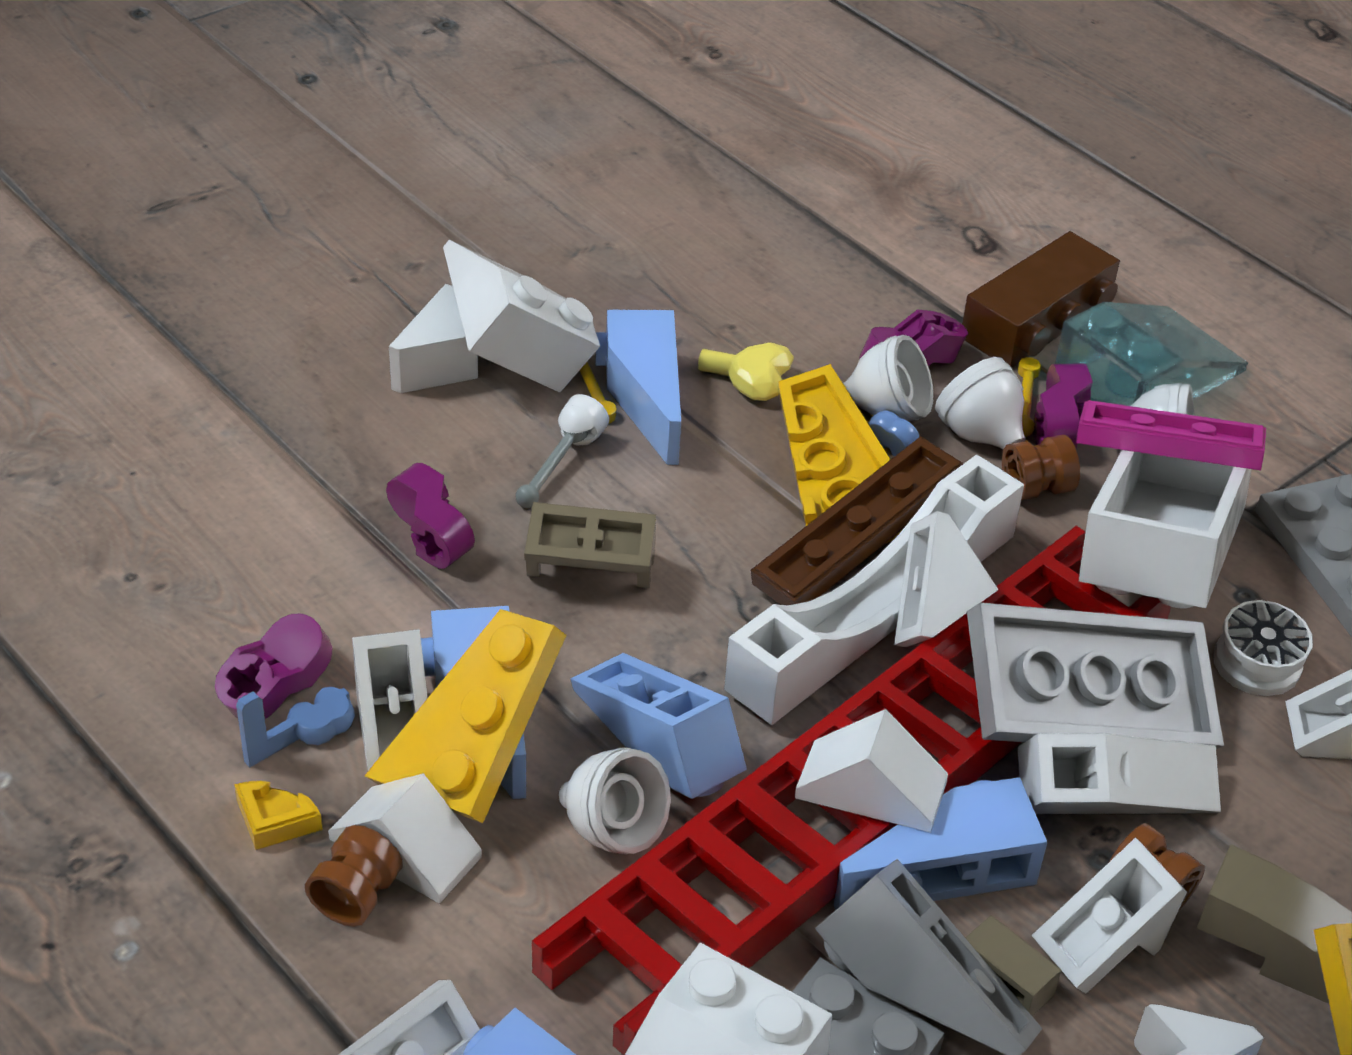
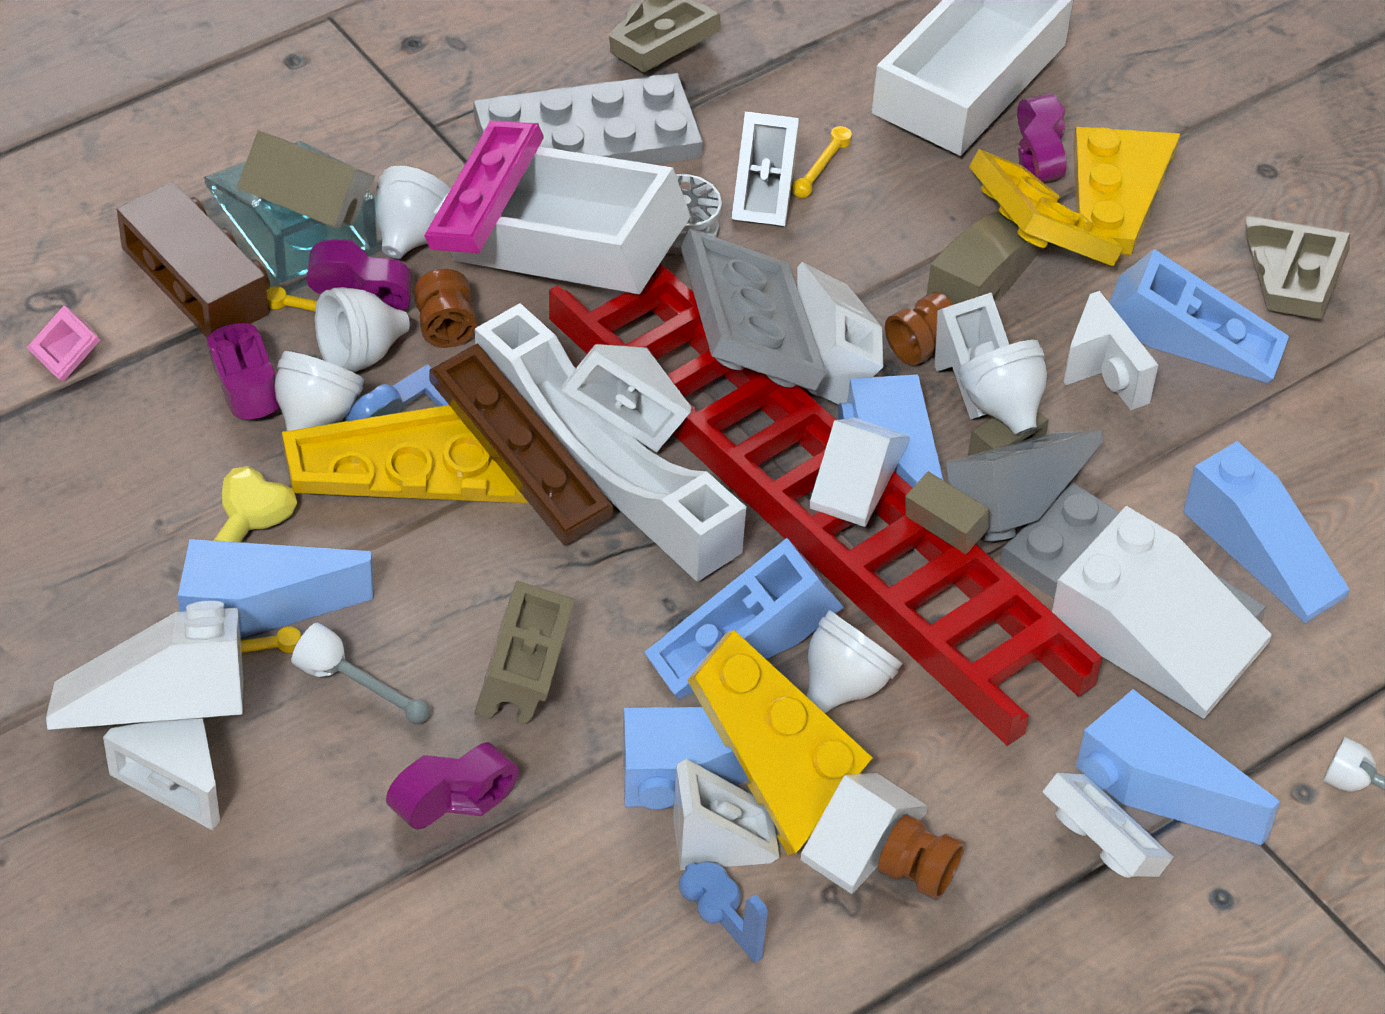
camera: 85 degrees left, 5 degrees up
(275, 813) = (830, 931): yellow tile -> none
(278, 665) = (664, 924): magenta piece -> none
(814, 857) = (947, 512): none -> dark tan piece
(923, 243) = (64, 343): none -> bright pink slope
(1045, 924) = (1008, 383): none -> white helmet
(1130, 313) = (304, 181): none -> dark tan hinge

